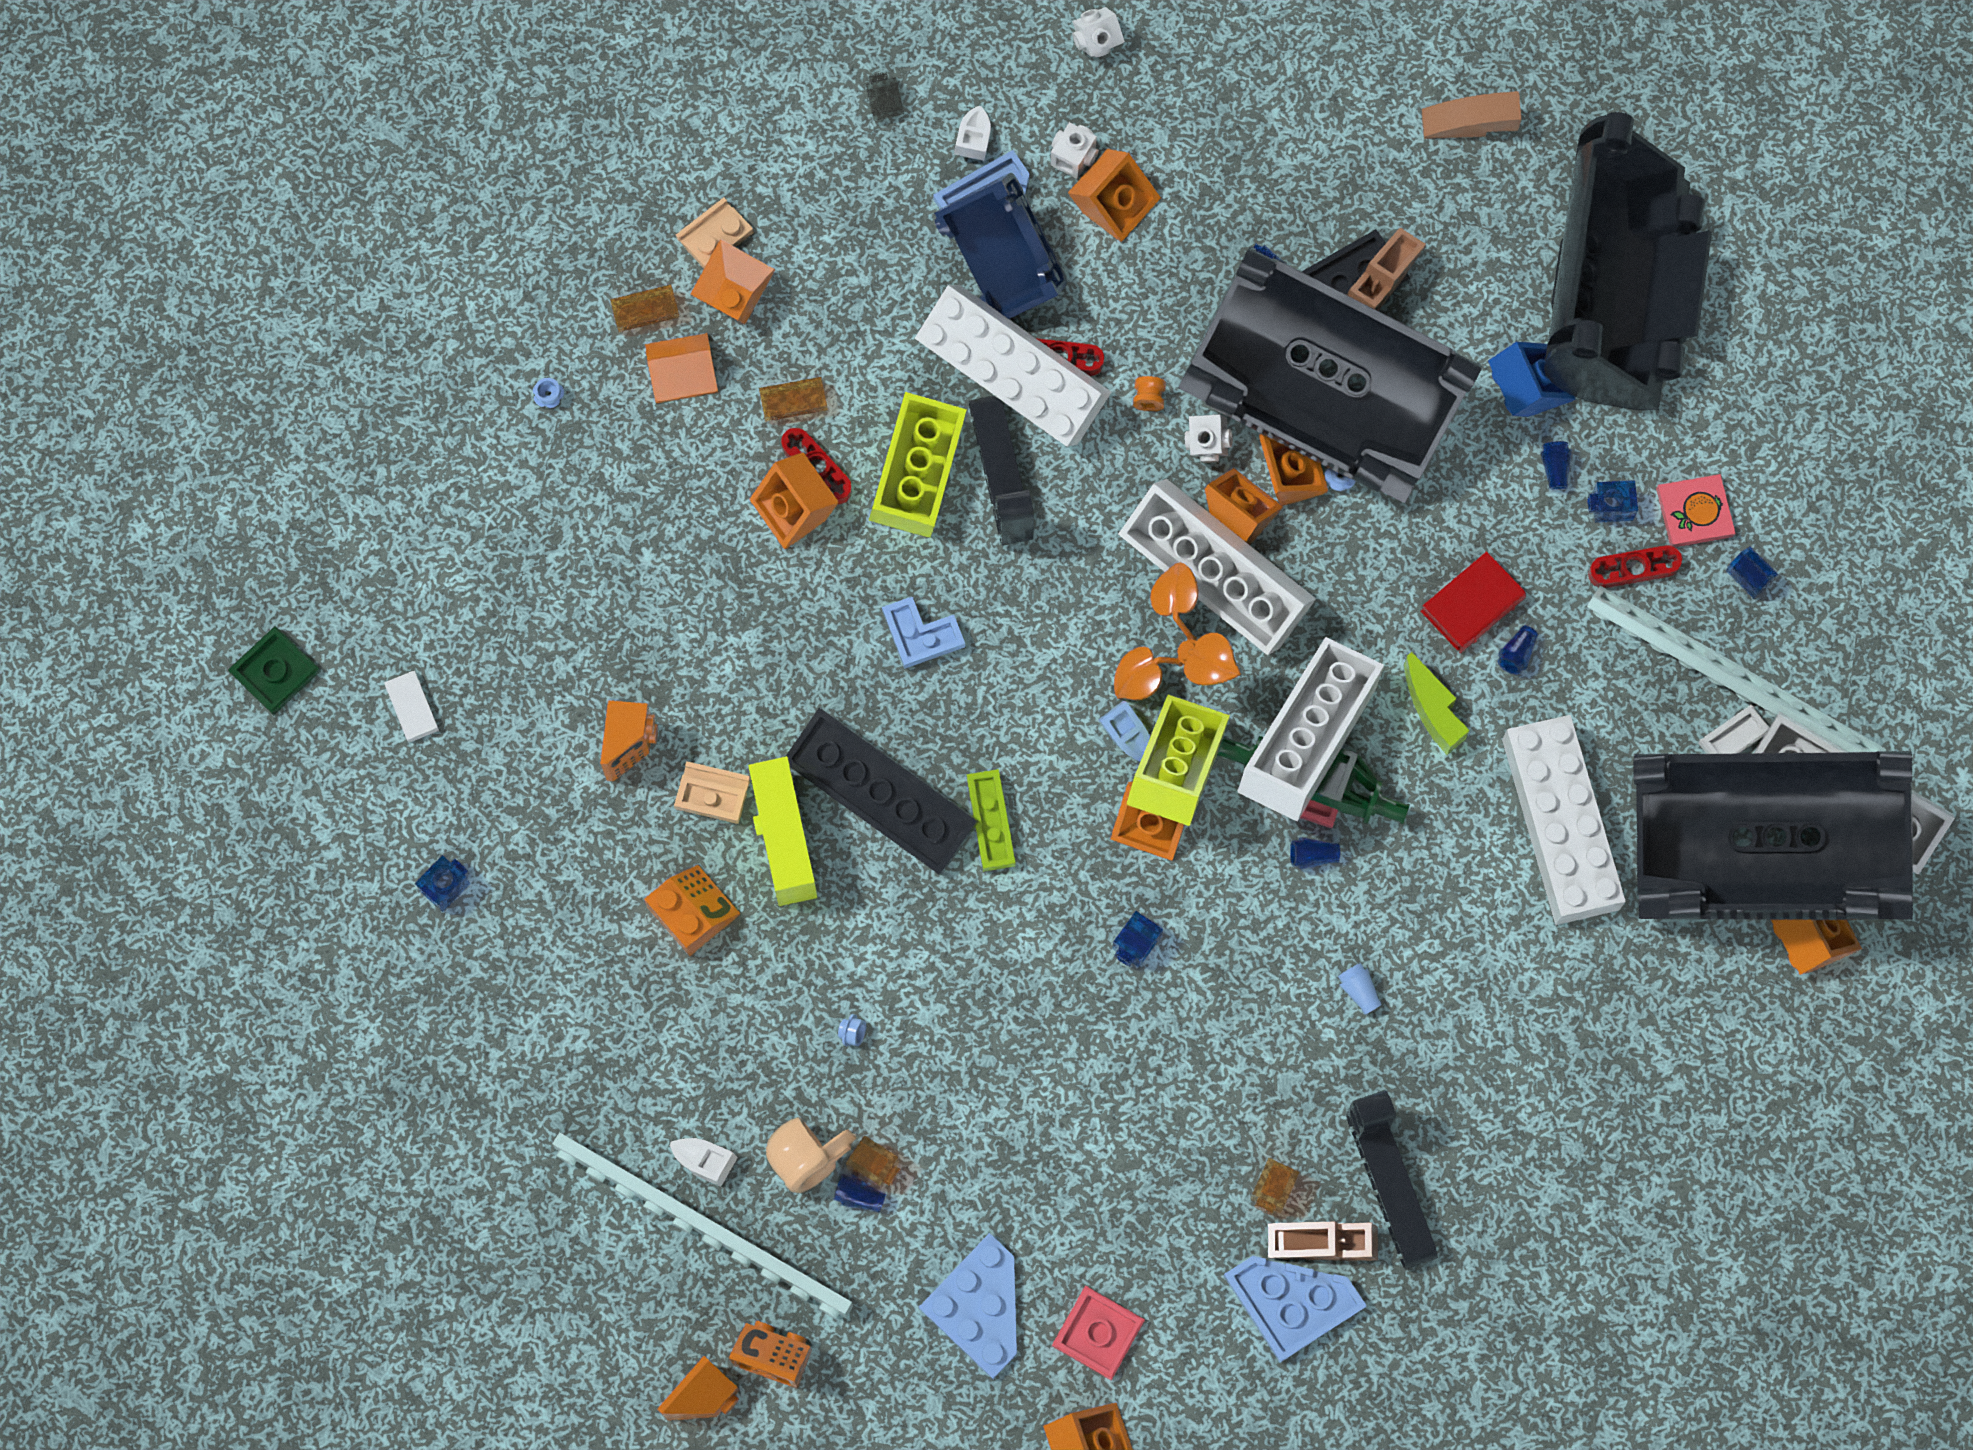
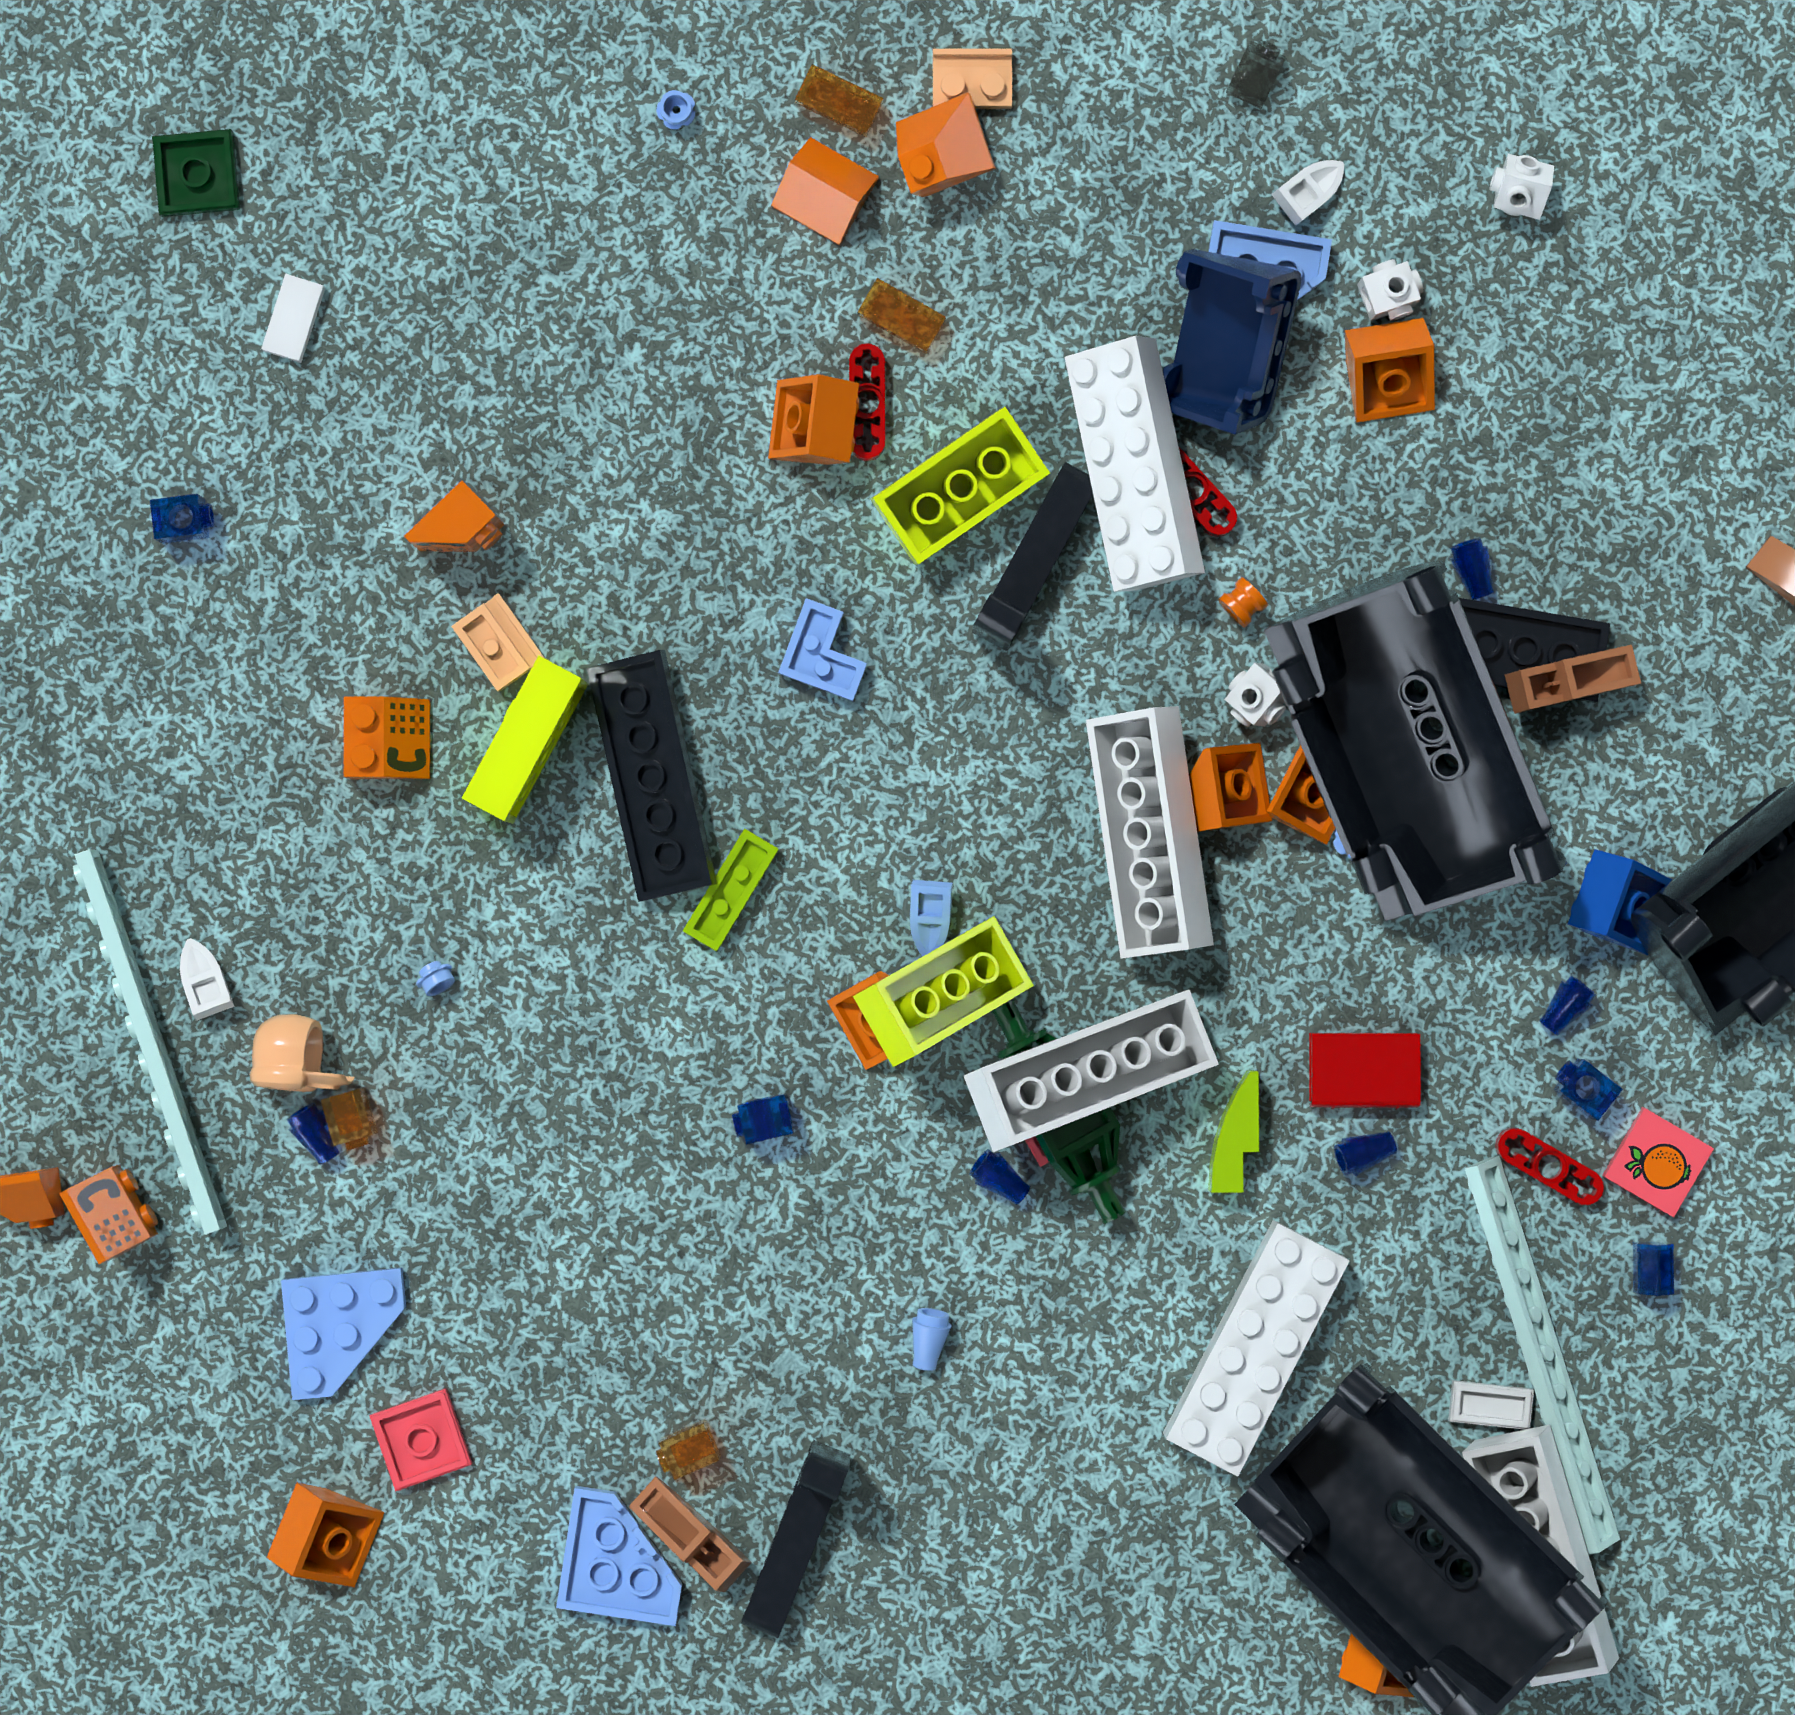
camera: 45 degrees right, 15 degrees up
(1205, 660) = (1053, 927): orange plant -> none

